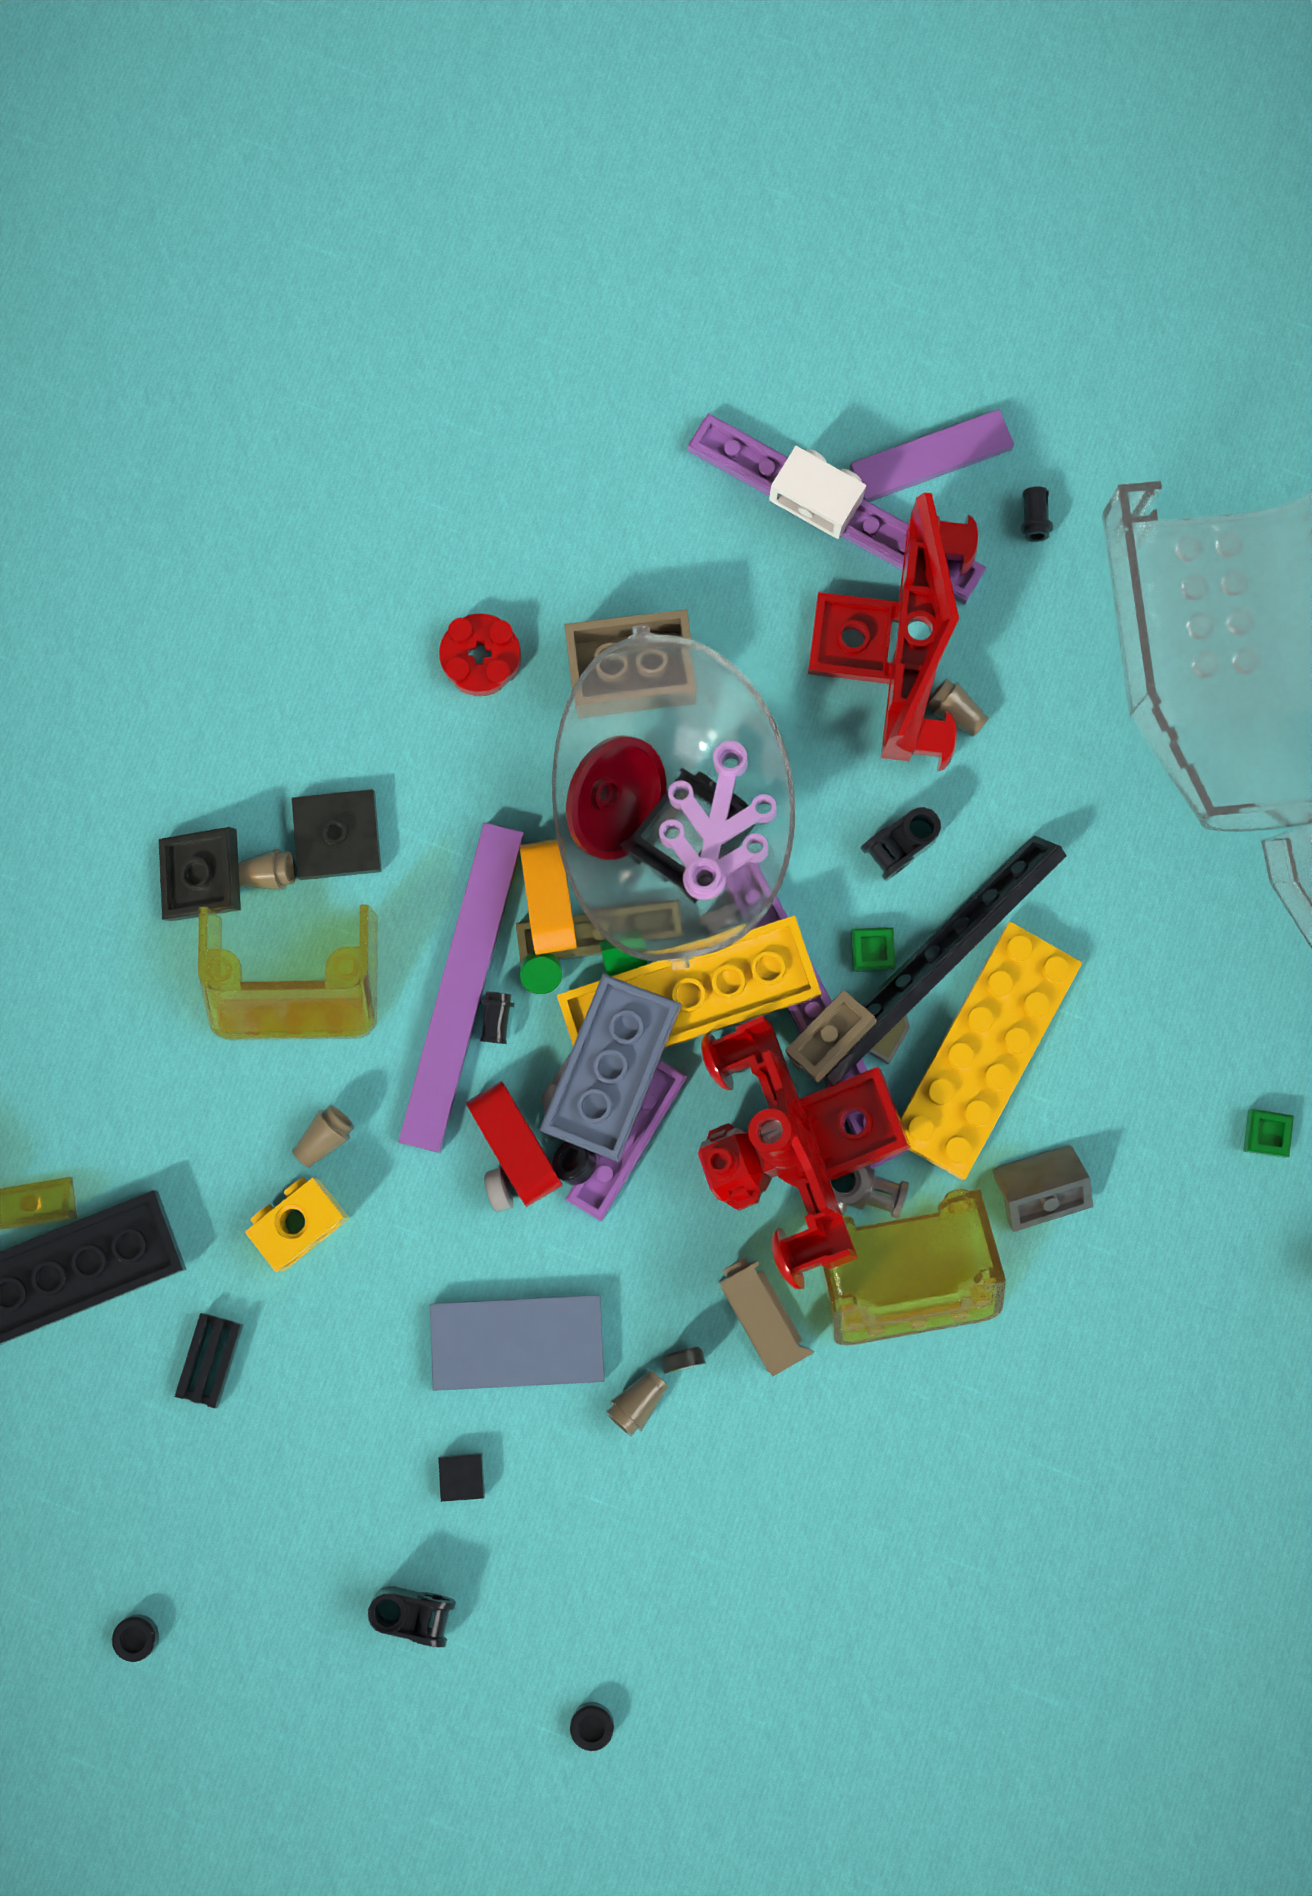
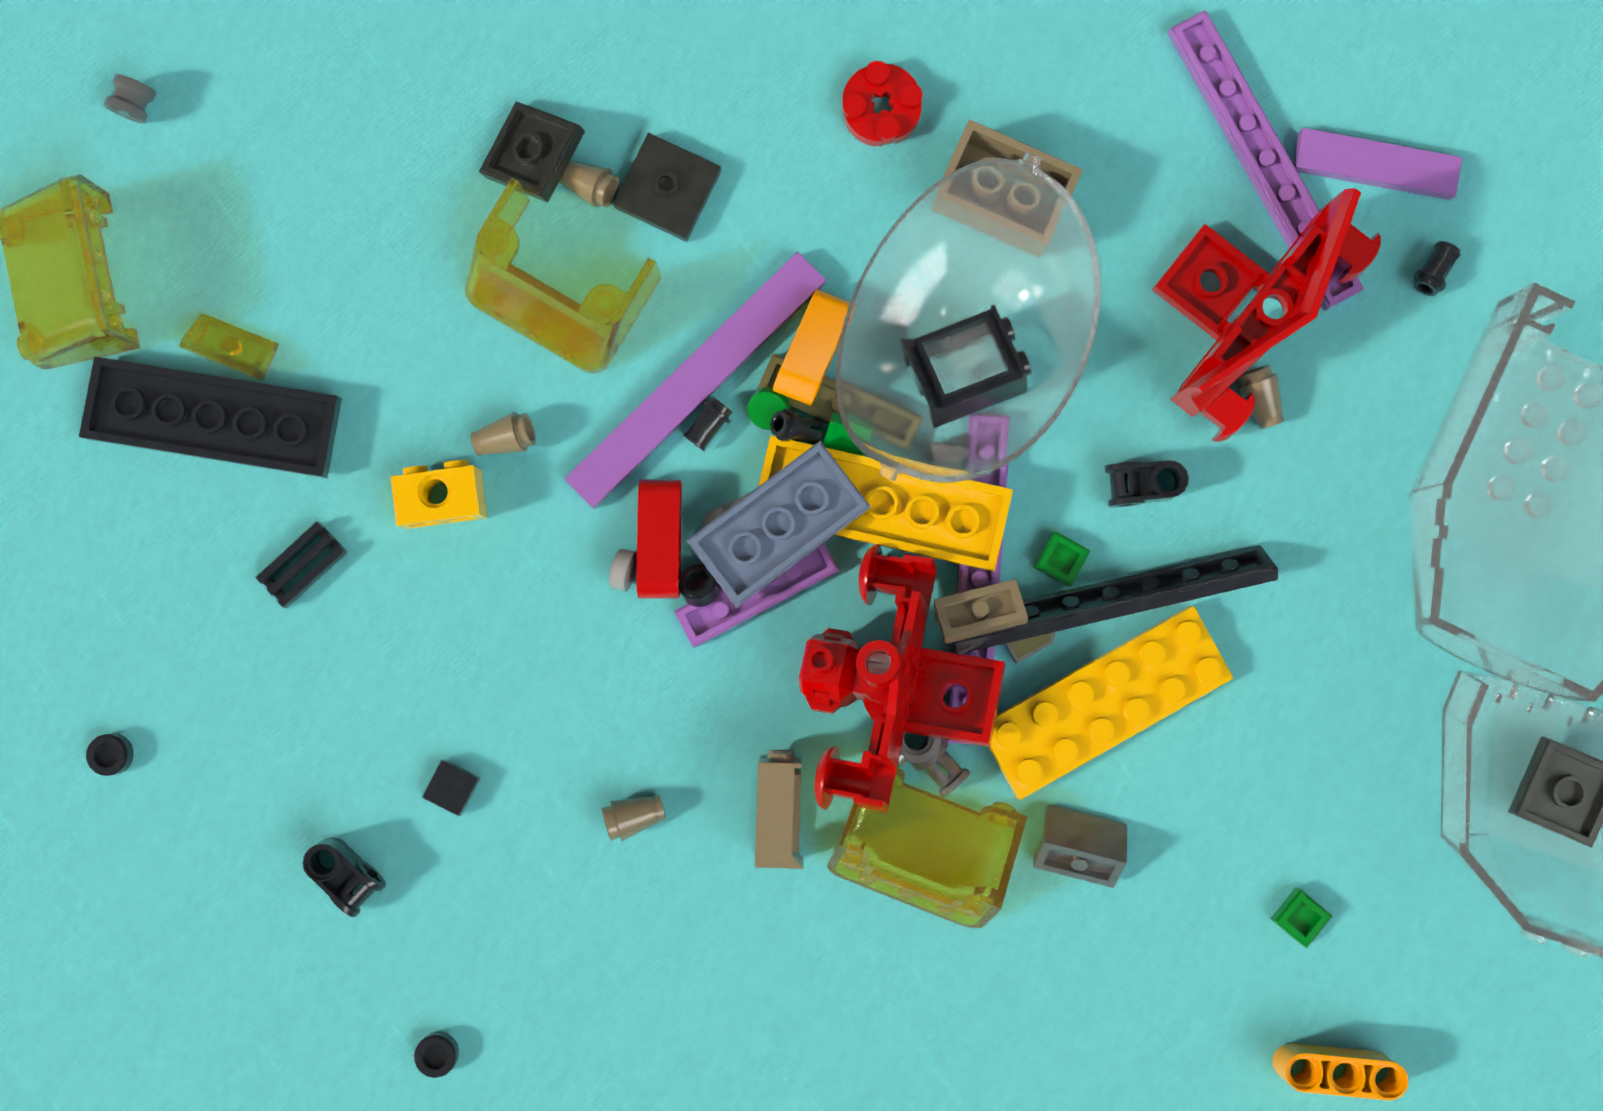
camera: 25 degrees right, 5 degrees up
(516, 1342) = (563, 705): sand blue tile -> none
(568, 976) = (789, 425): none -> black pin
(613, 794) = (921, 292): dark red dish -> none
(682, 1360) = (691, 804): pearl dark grey tile -> none
(716, 828) = (991, 374): lavender plant -> none
(817, 491) = (1259, 134): white brick -> none

